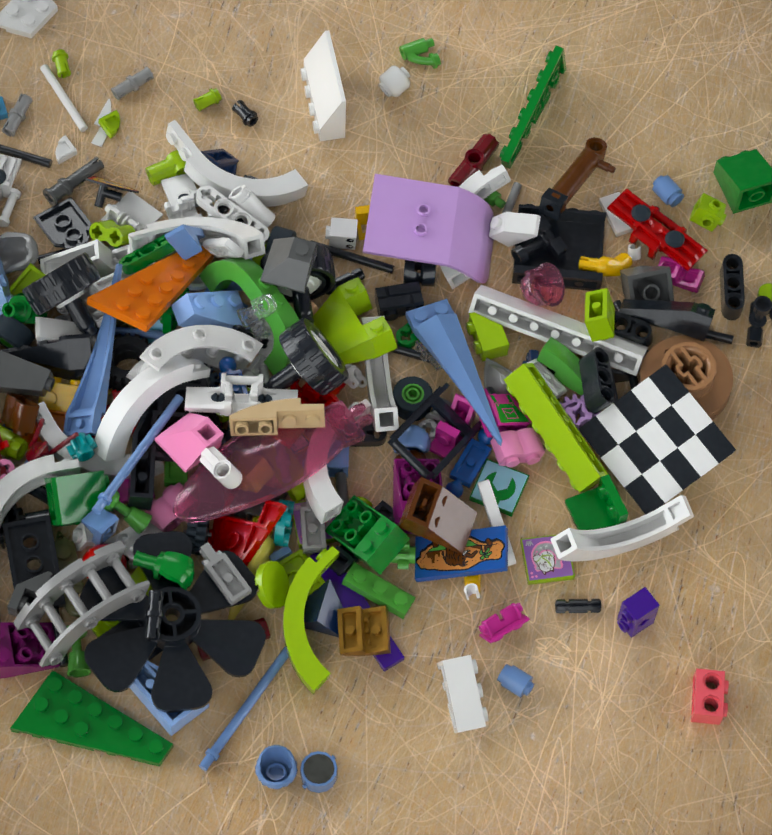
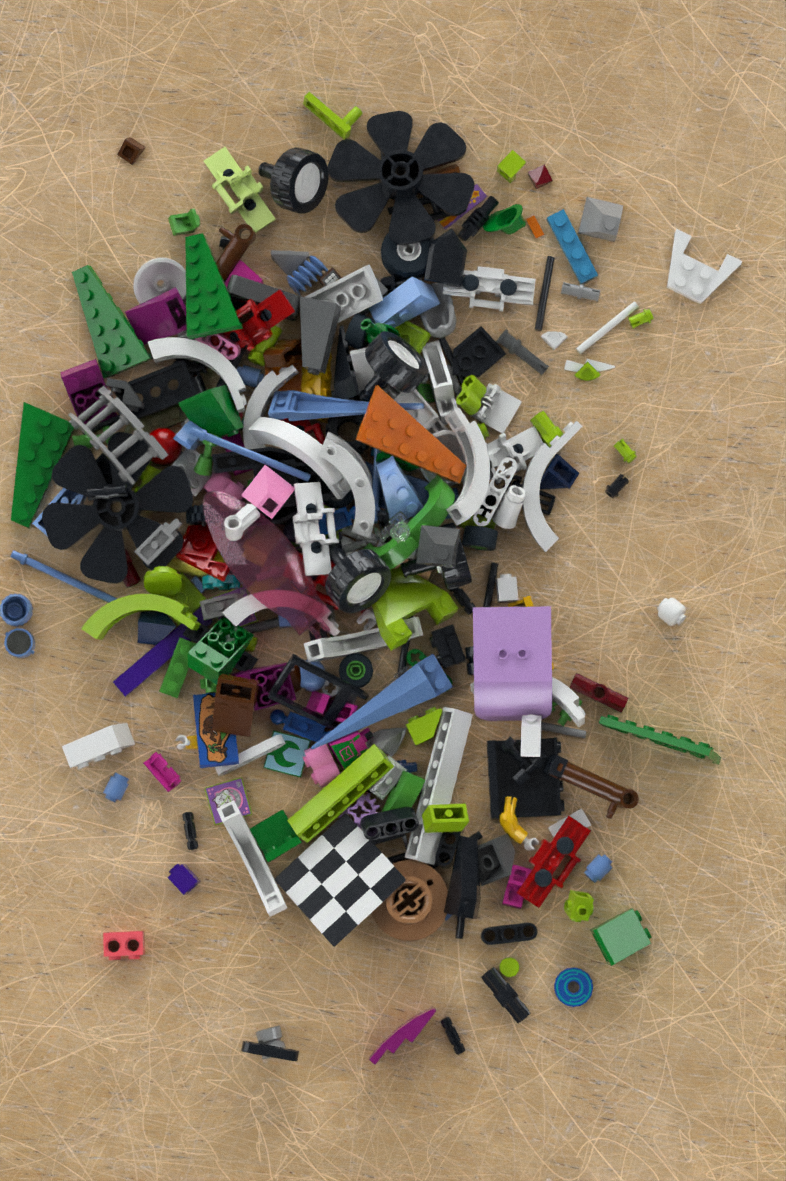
camera: 85 degrees right, 20 degrees up
(40, 449) = (250, 375): dark red plant -> none
(82, 447) = (256, 408): teal gear -> none
(103, 190) = (519, 383): black shield -> none
(132, 83) = (630, 383): light grey pin -> none
(146, 255) = (458, 442): green beam -> none
(169, 564) = (154, 497): green piece -> none
(185, 240) = (455, 456): medium blue slope -> none
(223, 248) = (454, 489): white plate -> none
(269, 416) = (292, 552): tan slope -> none
(324, 90) = (645, 551): white slope -> none
(363, 631) = (140, 660): pearl gold slope -> none
(411, 51) = (713, 626): bright green plant -> none
(543, 285) = (473, 768): clear pink helmet -> none
(757, 319) = (477, 958): black bar -> none

